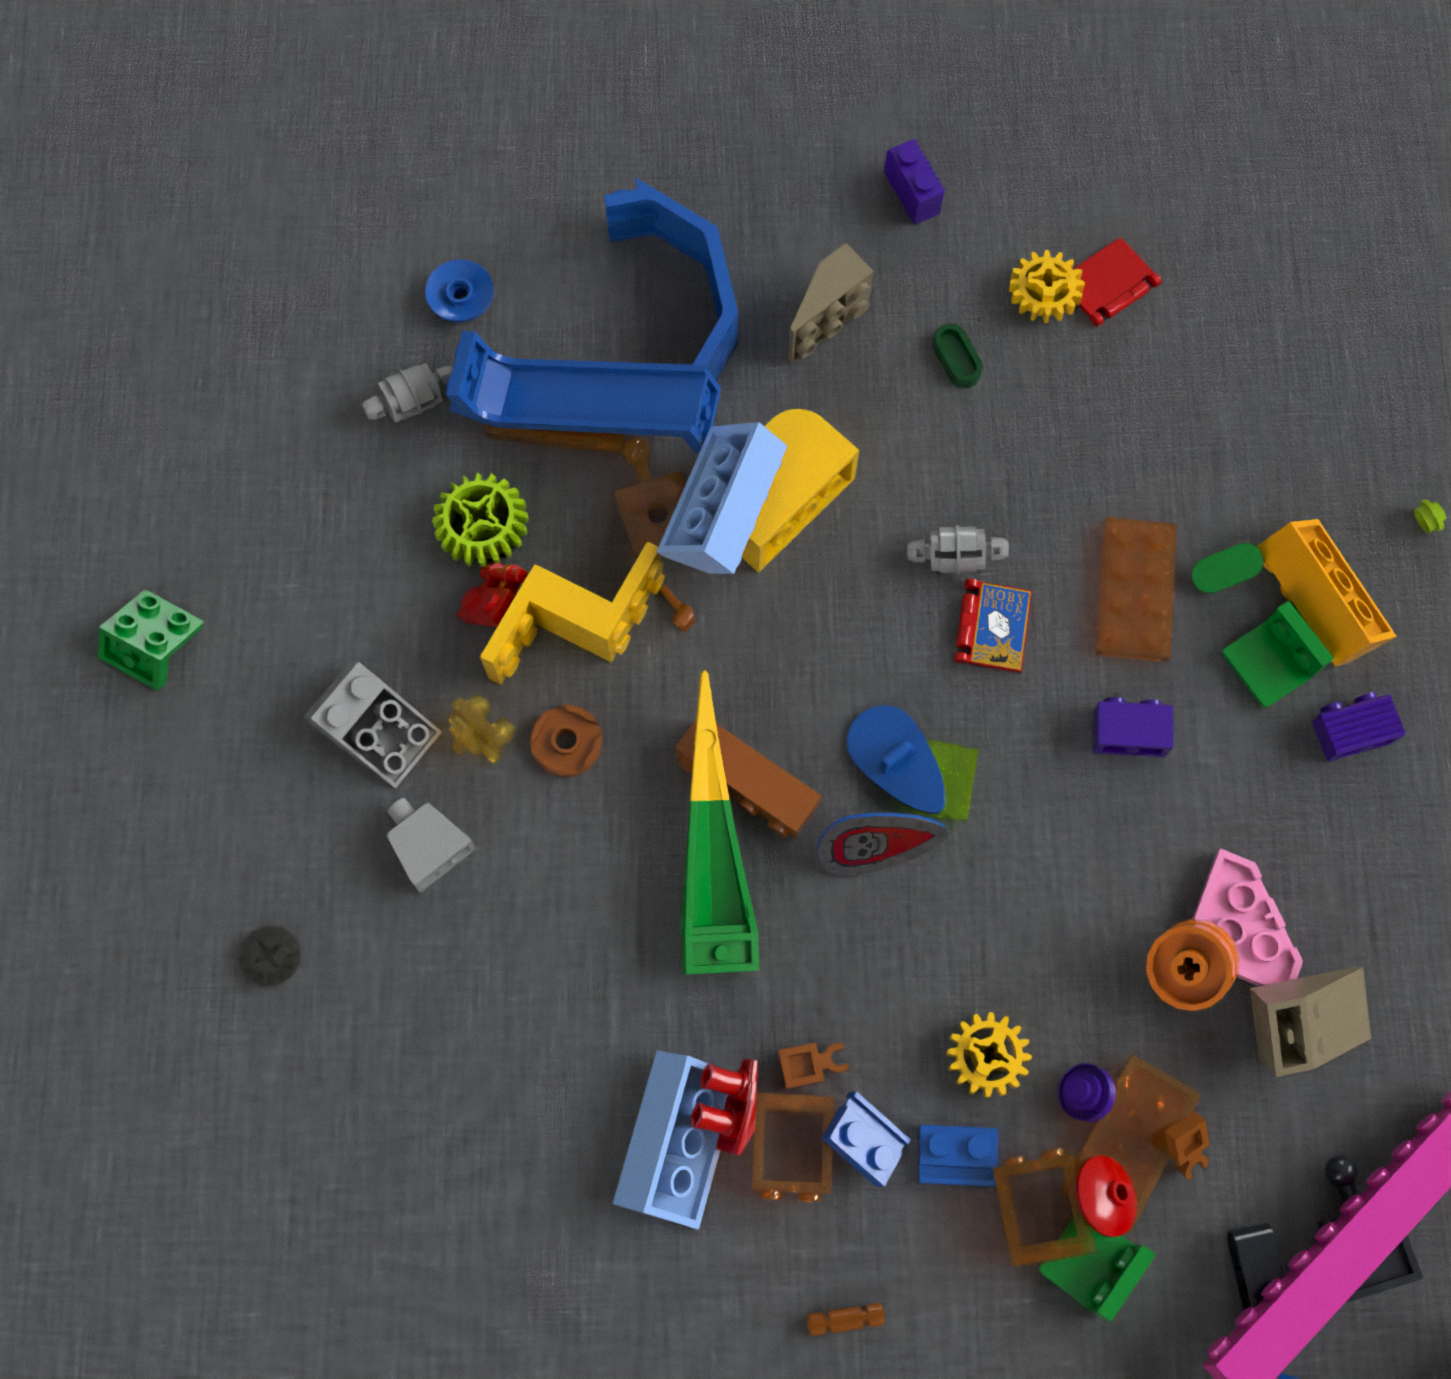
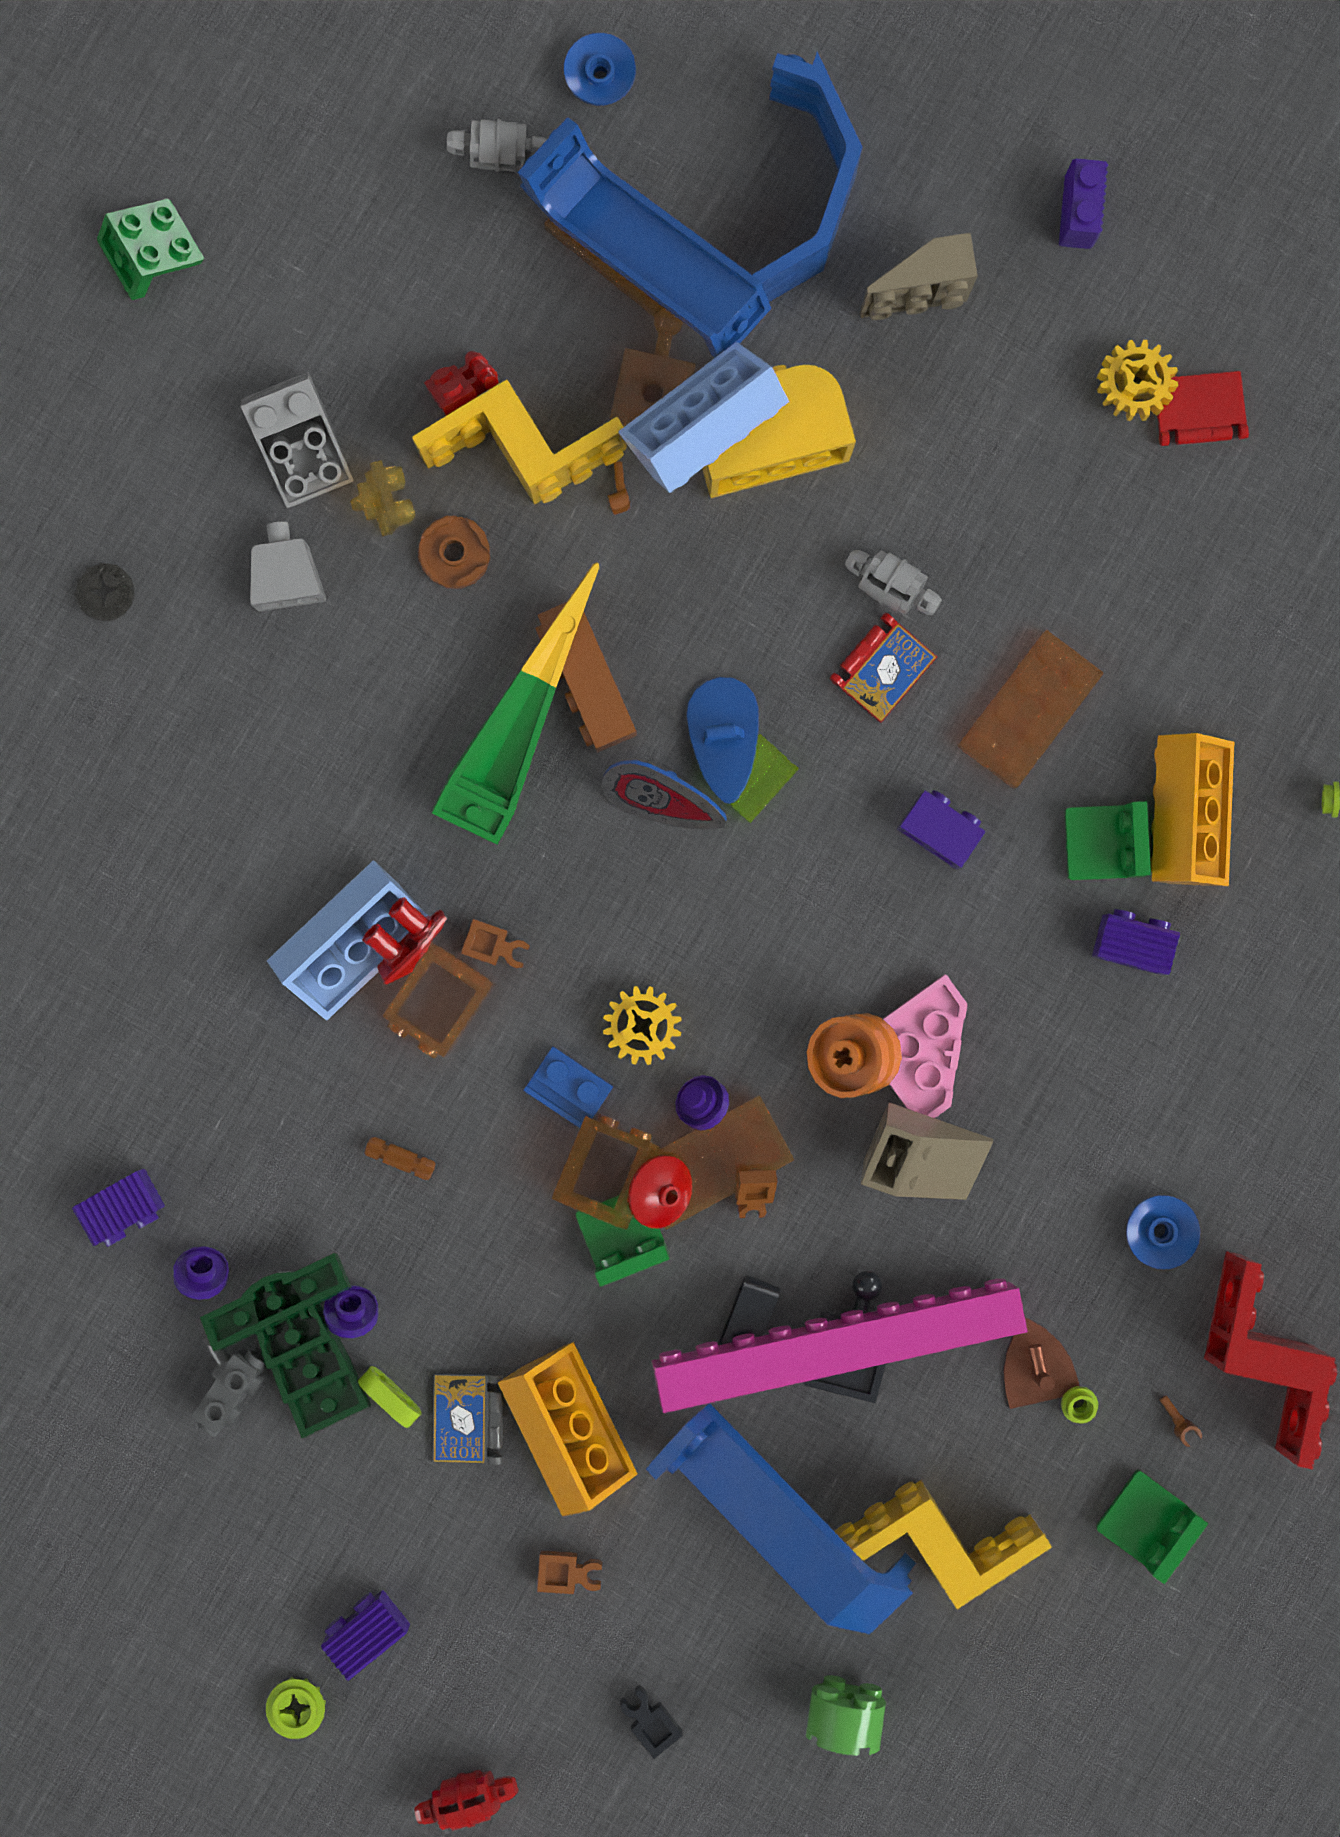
camera: 30 degrees right, 15 degrees up
(468, 543) = (503, 297): lime gear -> none
(866, 1139) = (499, 1031): plate -> none
(957, 355) = (1014, 399): dark green tile -> none
(1227, 568) = (1120, 739): green tile -> none

